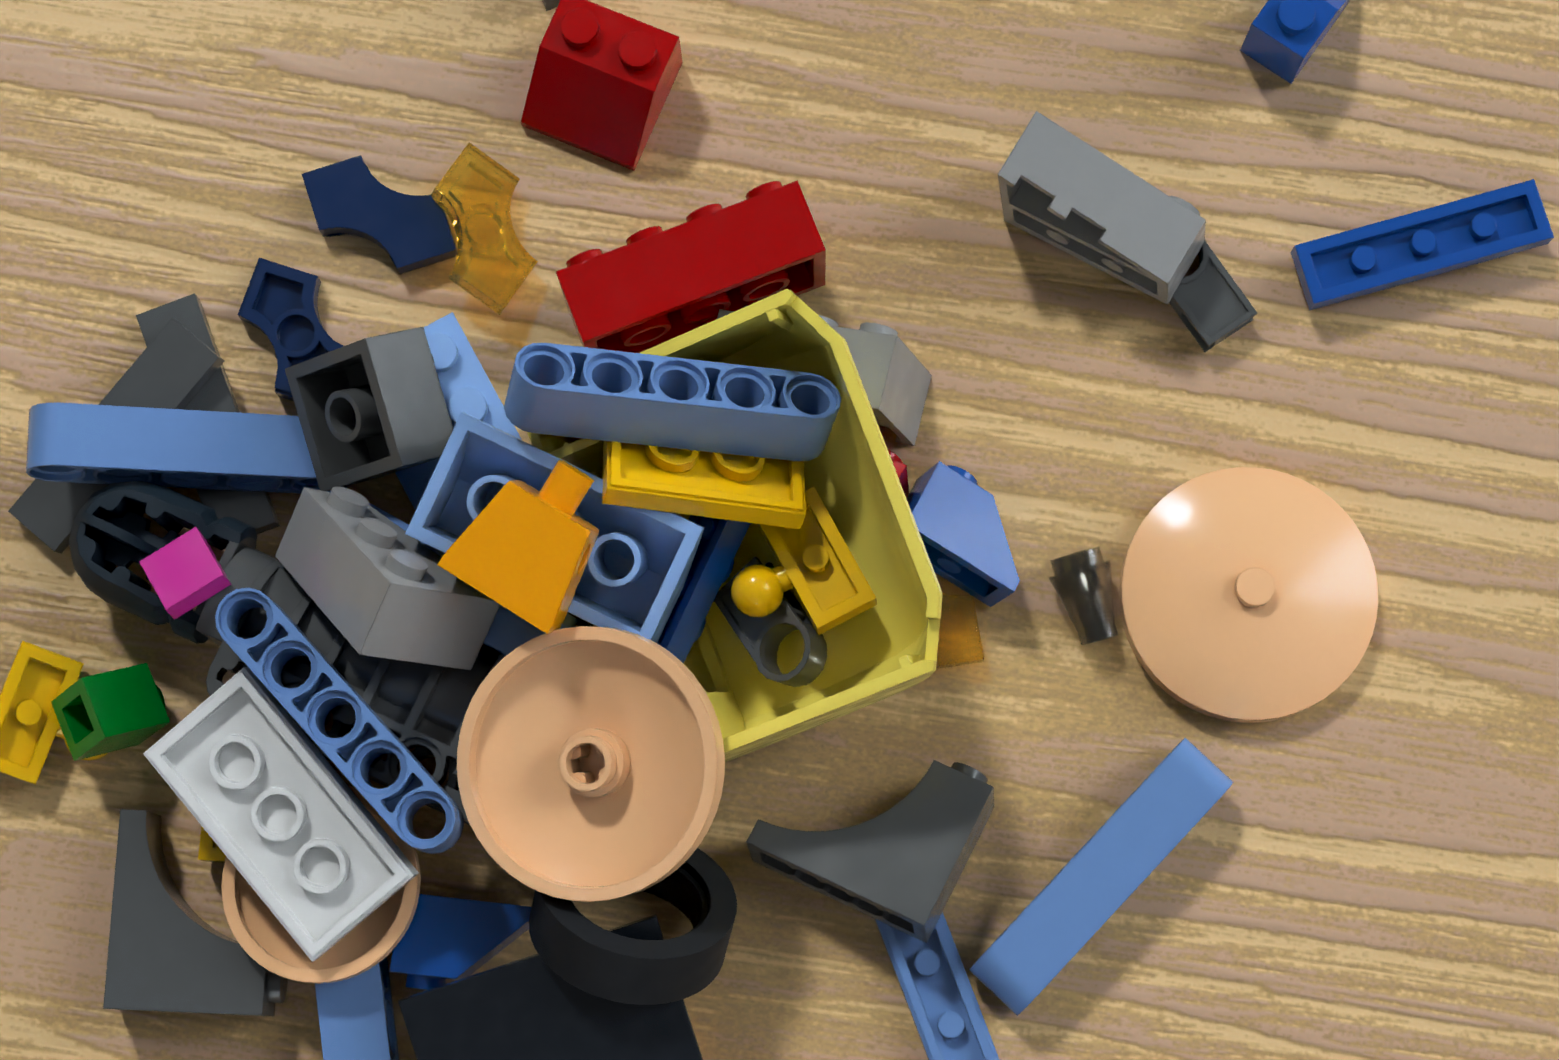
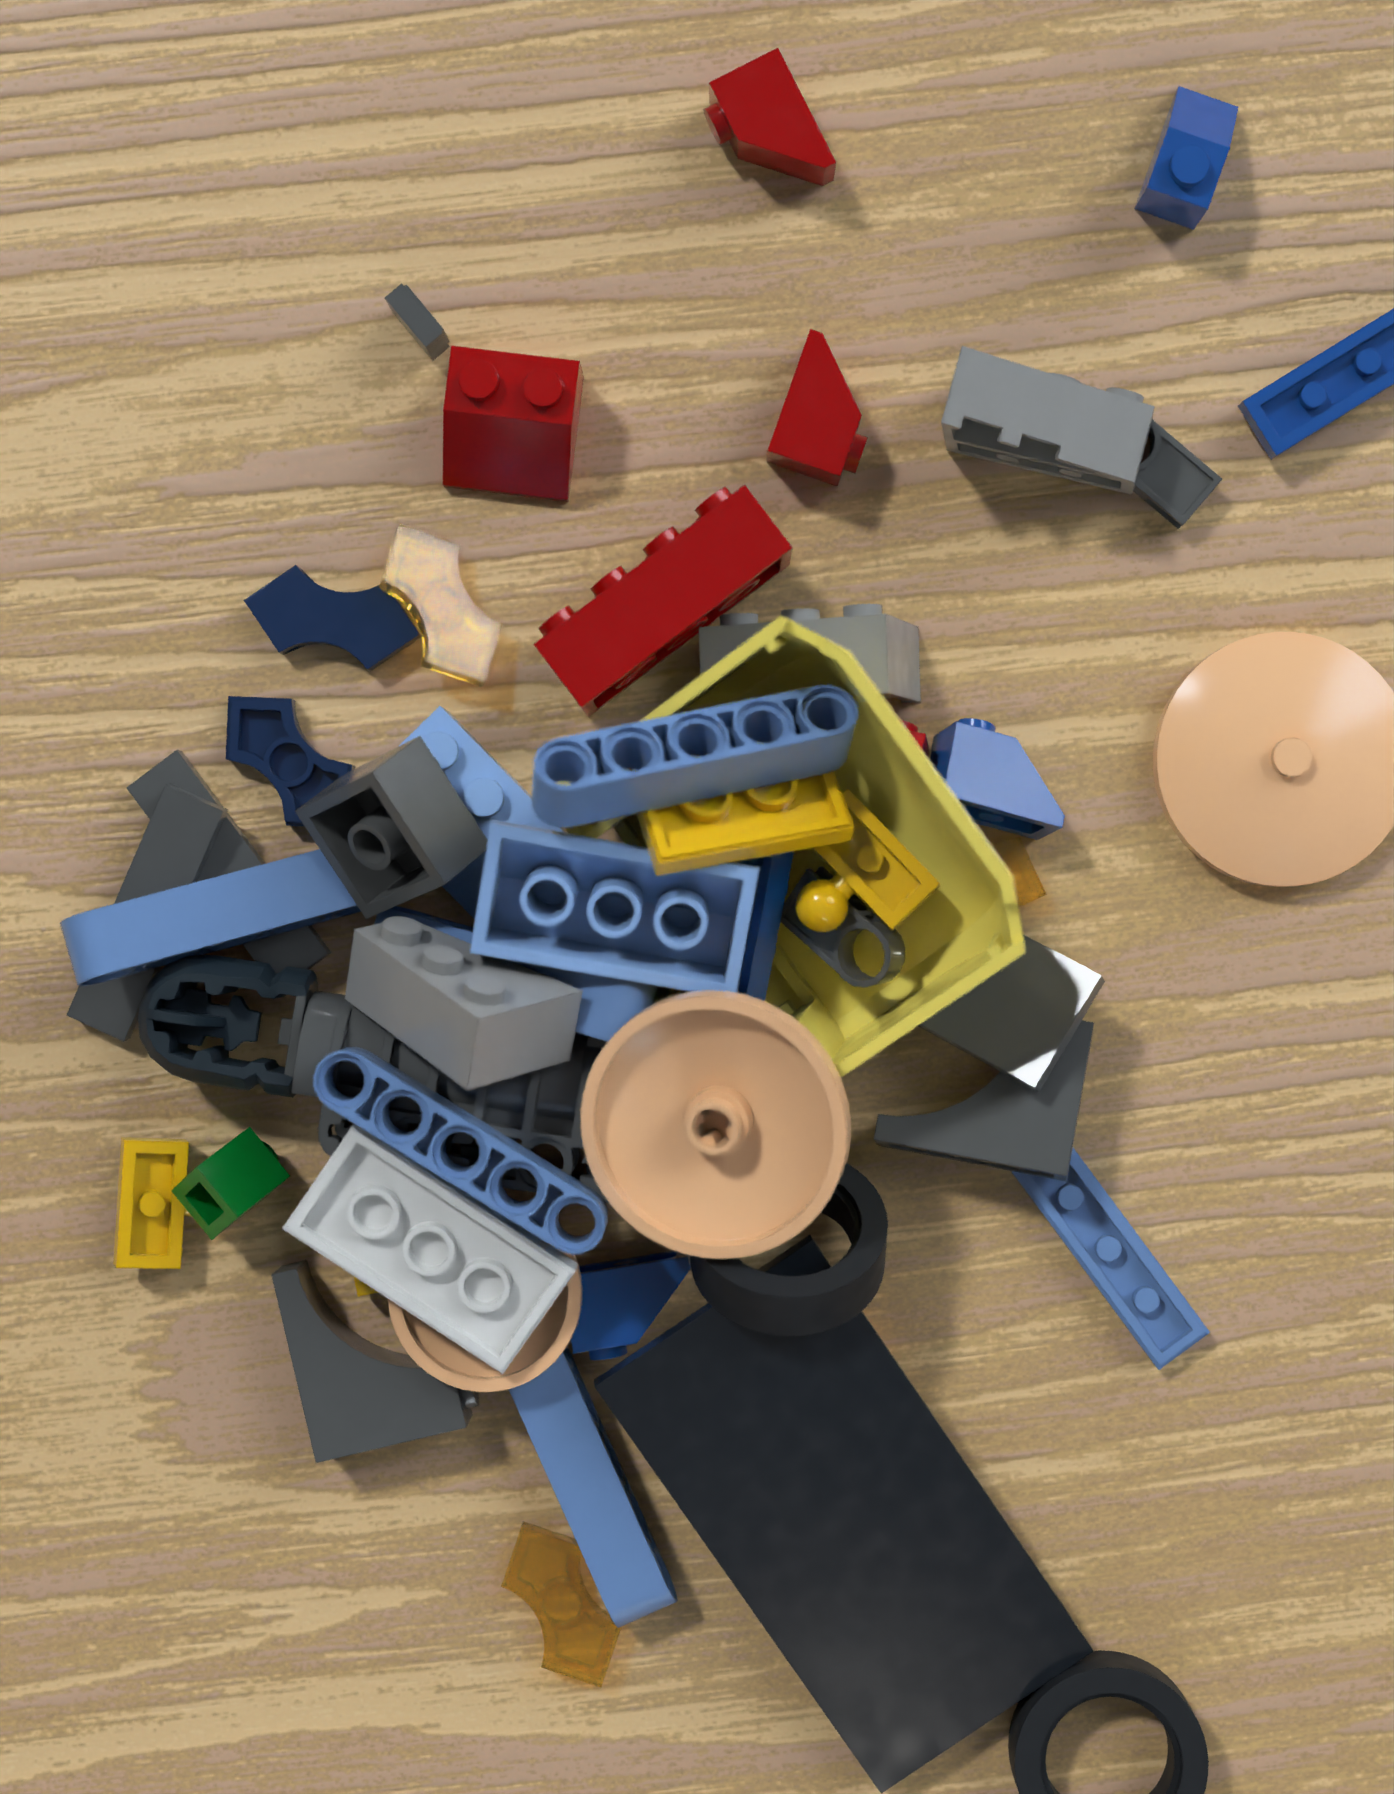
camera: 25 degrees left, 10 degrees up
(185, 573) = (266, 1044): dark pink tile -> none
(528, 547) = (597, 939): light orange torso -> none
(887, 155) = (818, 419): none -> red slope
(916, 749) = (1021, 1014): none -> dark grey tile
(1086, 593) = (1127, 803): clear smoke cone -> none
(1101, 876) = (1214, 1071): medium blue beam -> none

